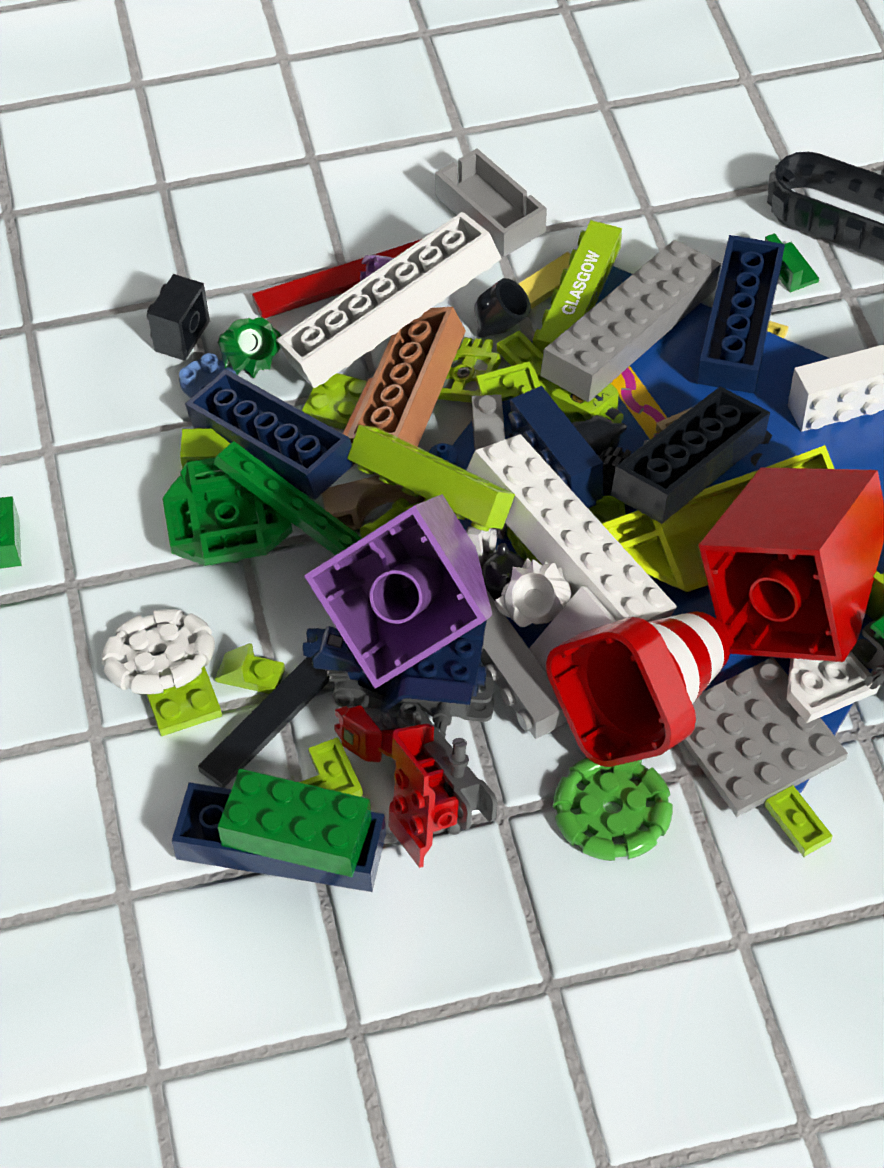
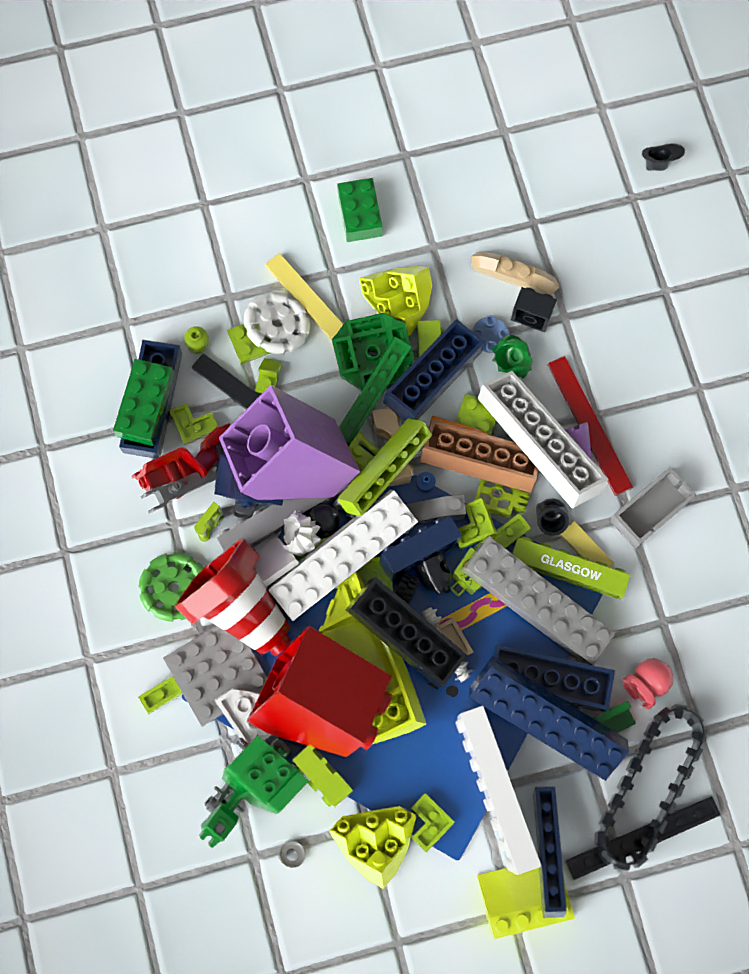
camera: 85 degrees right, 20 degrees up
(99, 626) = (305, 295): none -> light yellow tile
(109, 348) = (514, 272): none -> tan brick
(124, 487) = (399, 293): none -> neon yellow brick
(174, 769) = (196, 339): none -> lime head
(496, 740) = (210, 519): none -> lime plate
(737, 212) = (650, 680): none -> coral tile
(800, 308) = (549, 718): none -> dark blue brick

